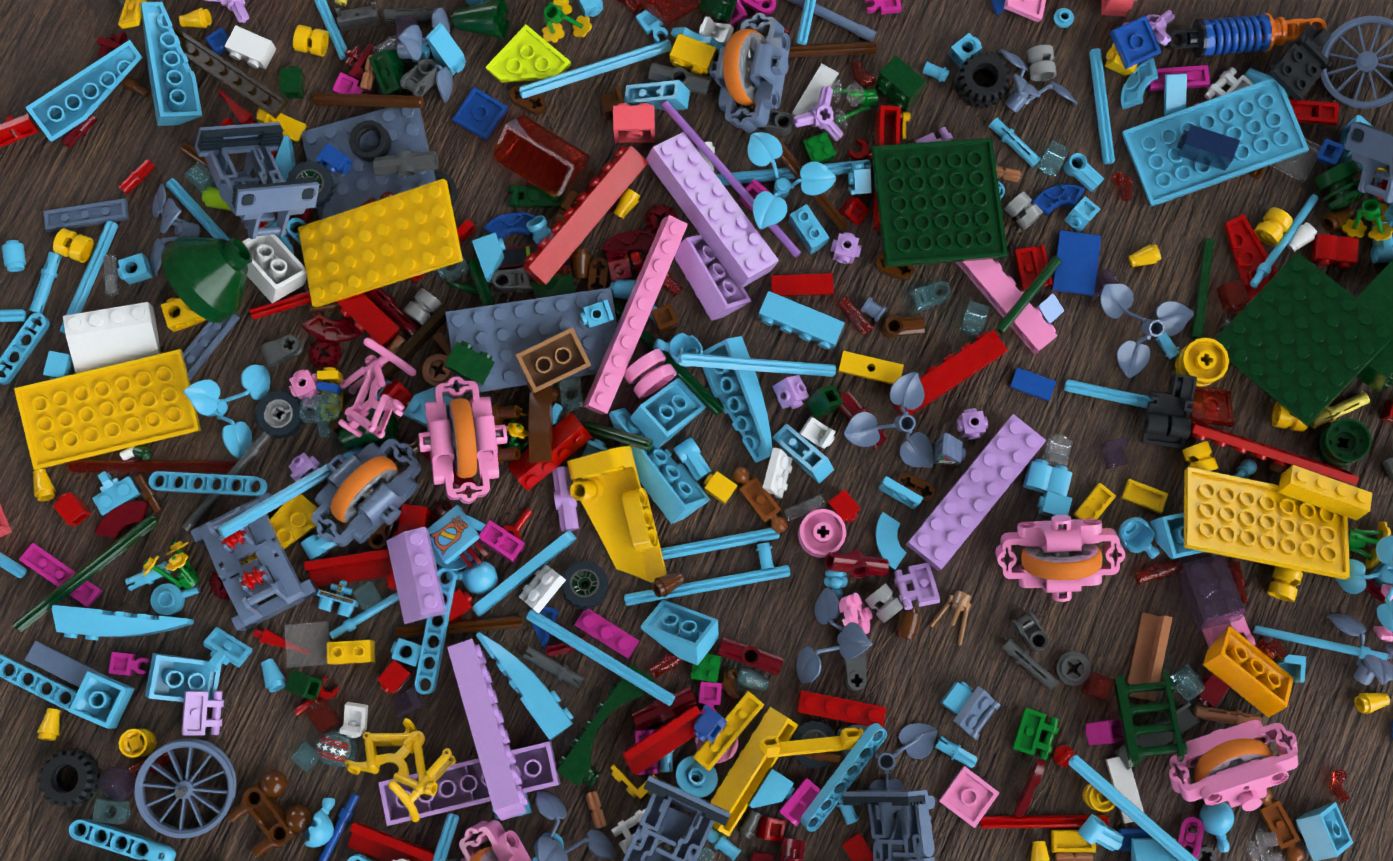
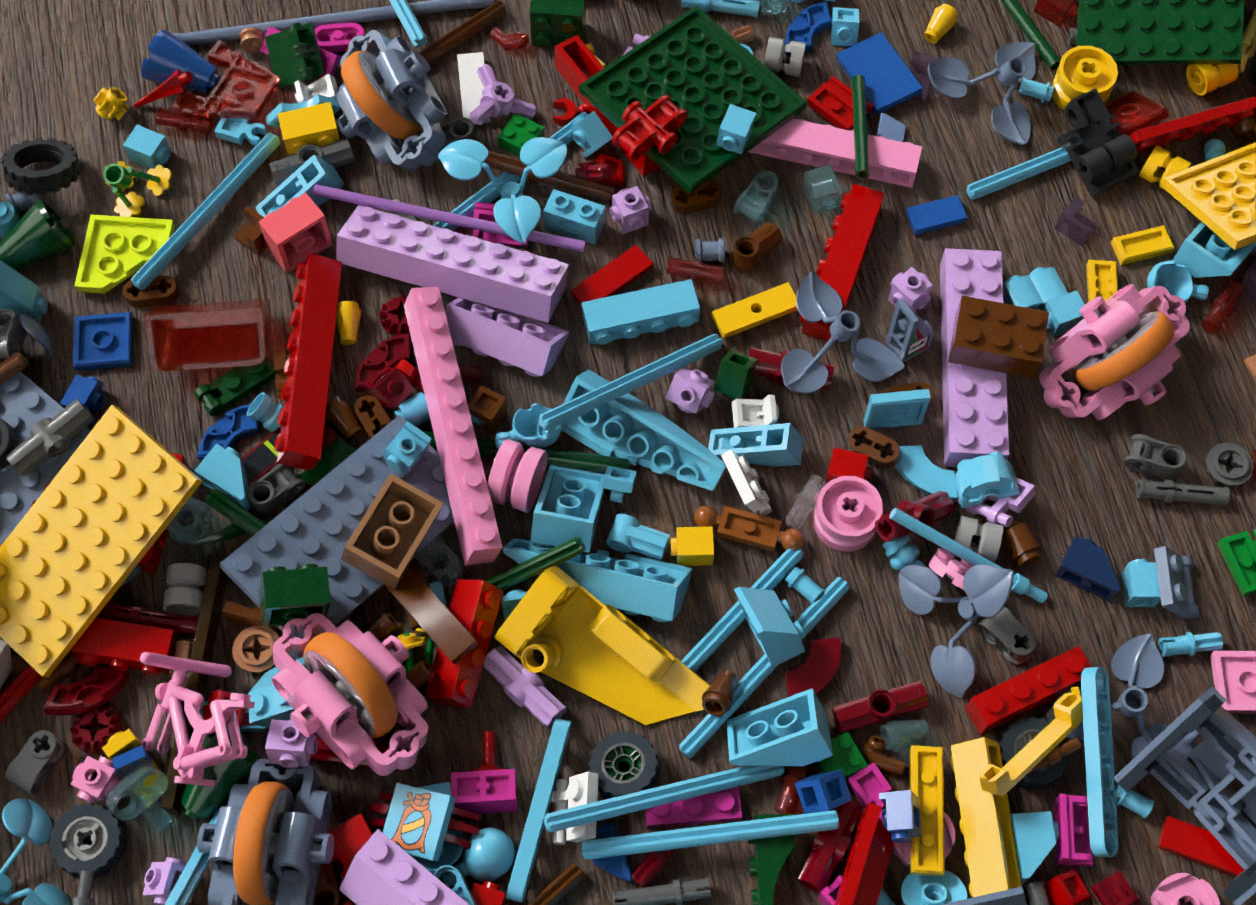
camera: 35 degrees left, 15 degrees down
(409, 445) = (288, 745): none -> lavender brick
(444, 145) = (87, 391): none -> blue brick
(586, 615) = (658, 796): none -> medium azure axle
(678, 680) = (823, 791): none -> blue brick
(706, 418) = (619, 482): none -> medium azure tile
(724, 566) = (771, 624): none -> medium azure slope
(733, 609) = (818, 668): none -> dark red tile
(841, 207) = (593, 171): none -> dark red axle
(855, 95) = (527, 56): clear plant -> none
(876, 502) = (877, 441): none -> reddish brown beam
(885, 644) = (1020, 585): none -> medium azure bar
(890, 208) = (649, 127): none -> red axle
(917, 572) = (985, 477): none -> medium azure cylinder
(934, 666) = (1088, 569): none -> dark blue slope
(943, 246) = (735, 129): none -> medium azure brick
(960, 603) = (1057, 482): medium nougat plant -> none
(992, 496) = (998, 337): none -> reddish brown brick
(1057, 450) = (1019, 256): clear brick -> none

